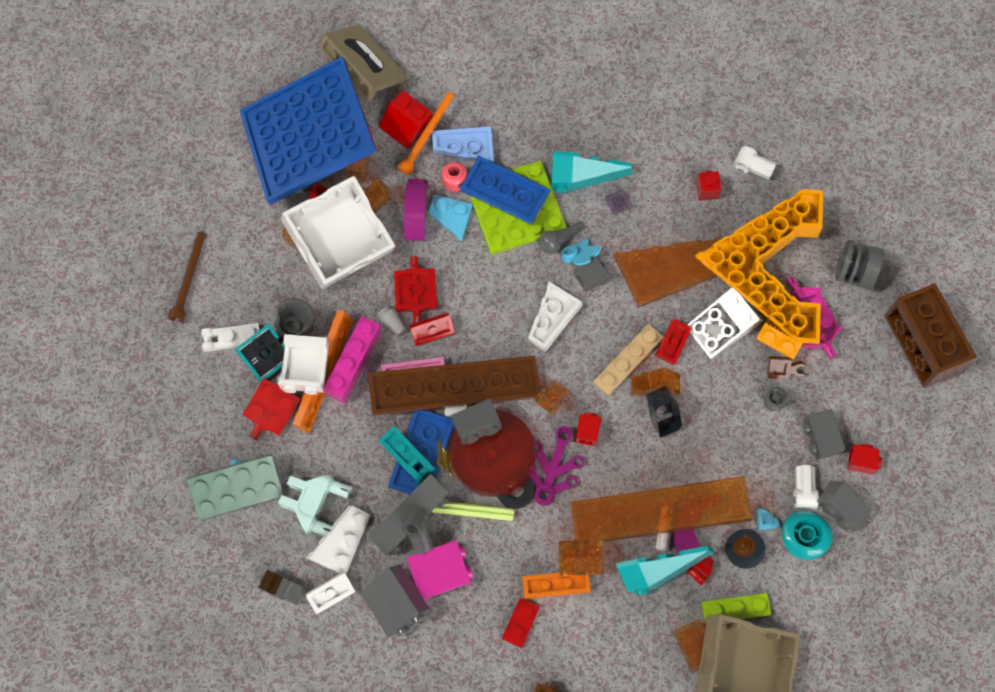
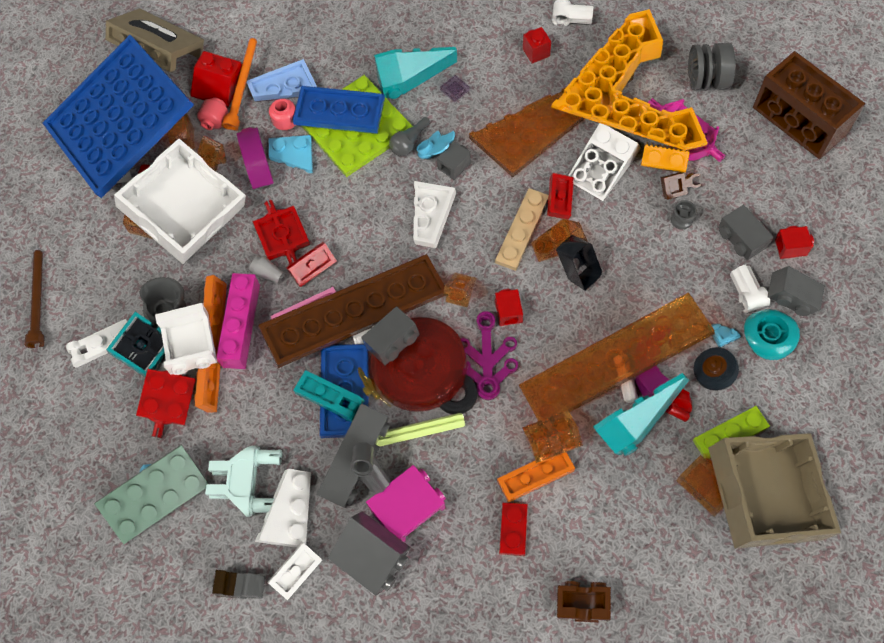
camera: 15 degrees left, 5 degrees down
(391, 153) = (212, 113): none -> coral head

